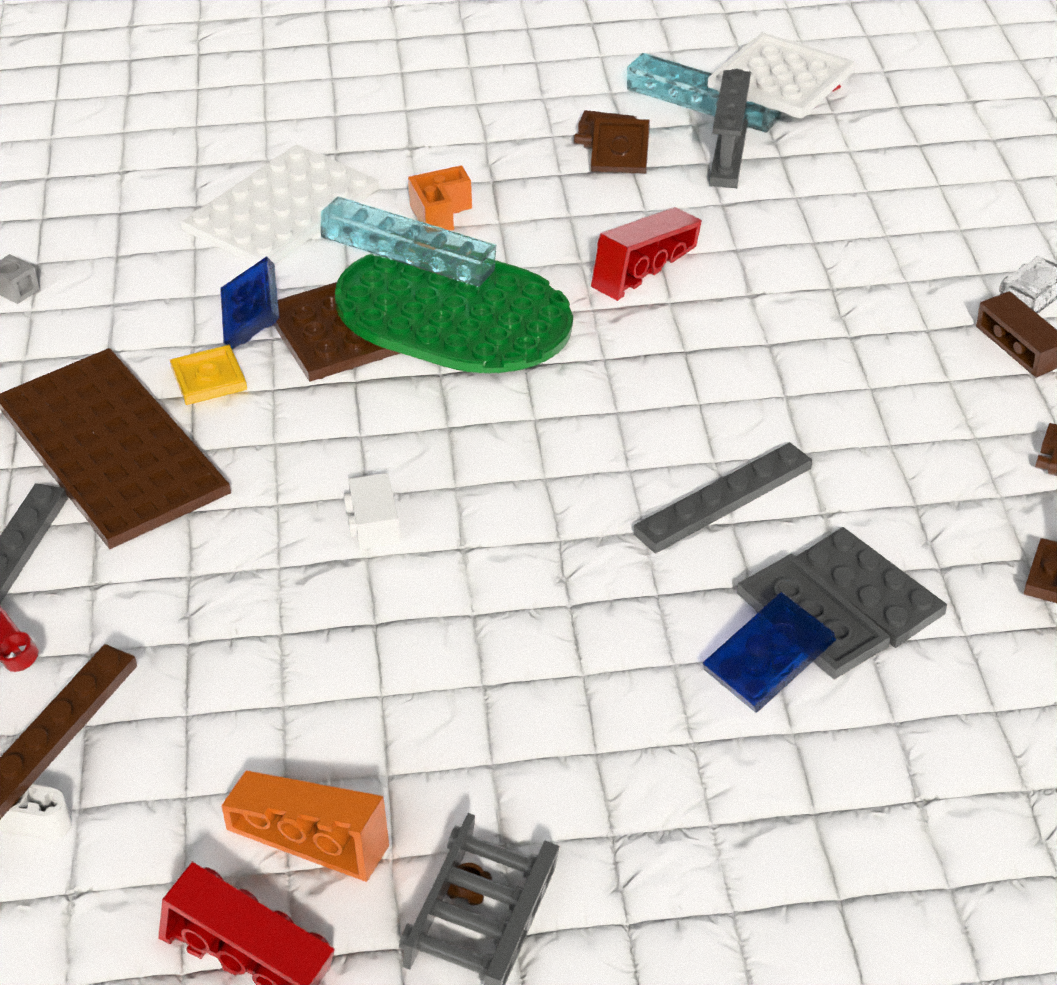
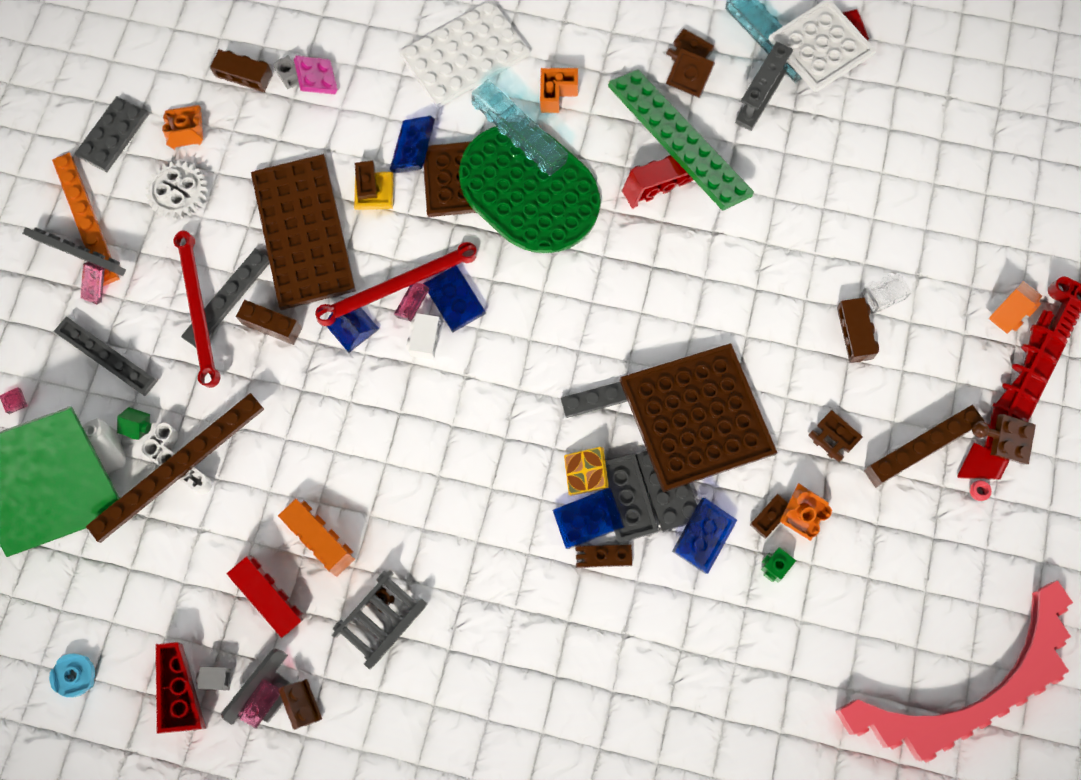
camera: 25 degrees right, 30 degrees up
(61, 267) = (315, 75): none -> dark pink plate
(97, 562) = (269, 322): none -> reddish brown brick
(192, 356) = (365, 180): none -> reddish brown plate
(238, 536) = (352, 328): none -> clear blue slope
(331, 476) = (411, 301): none -> clear pink plate
(389, 403) = (395, 284): none -> red piece
(410, 461) = (454, 298): none -> clear blue plate
(656, 202) = (681, 140): none -> green plate
(728, 596) = (586, 471): none -> tile
(822, 702) = (604, 556): none -> reddish brown hinge
(861, 483) = (697, 417): none -> reddish brown plate
(966, 619) = (704, 535): none -> clear blue plate

